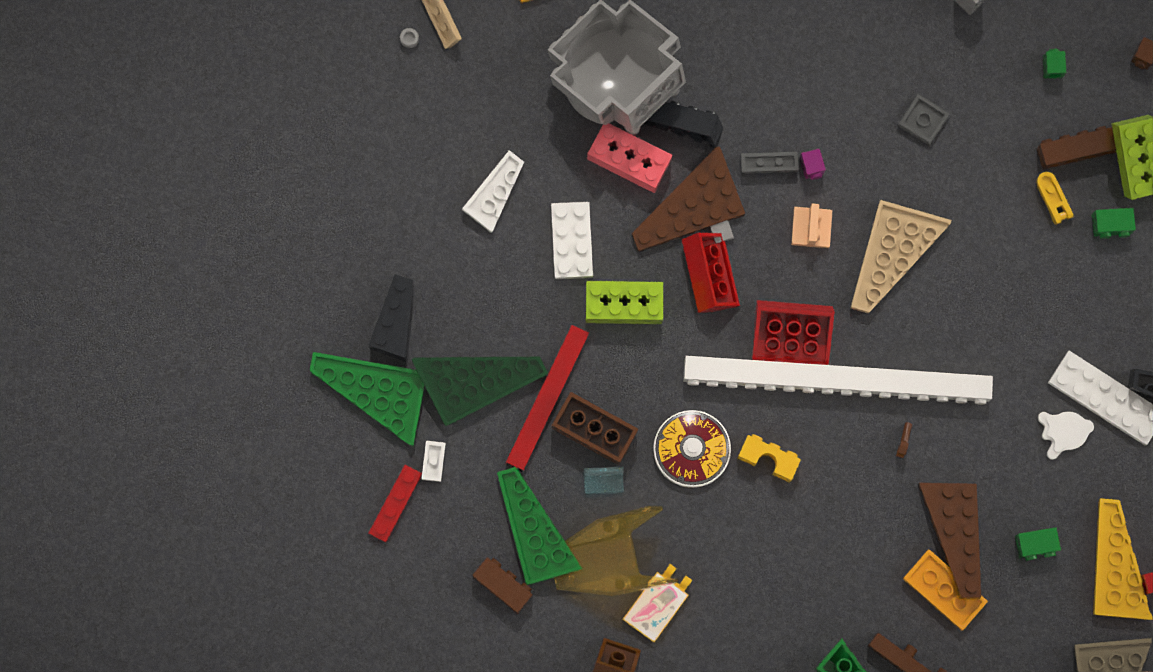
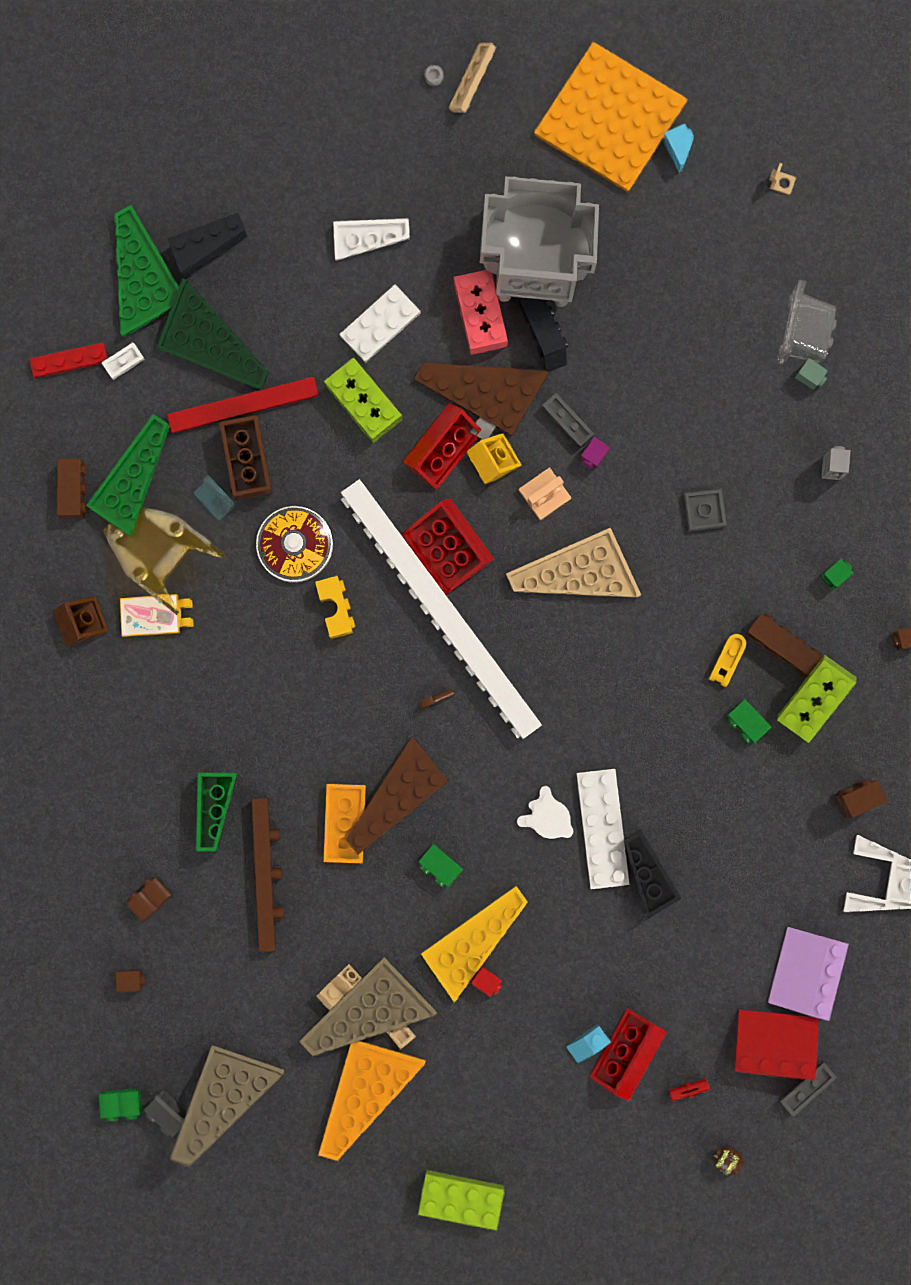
camera: 55 degrees right, 5 degrees up
(752, 242) = (493, 458): none -> yellow slope

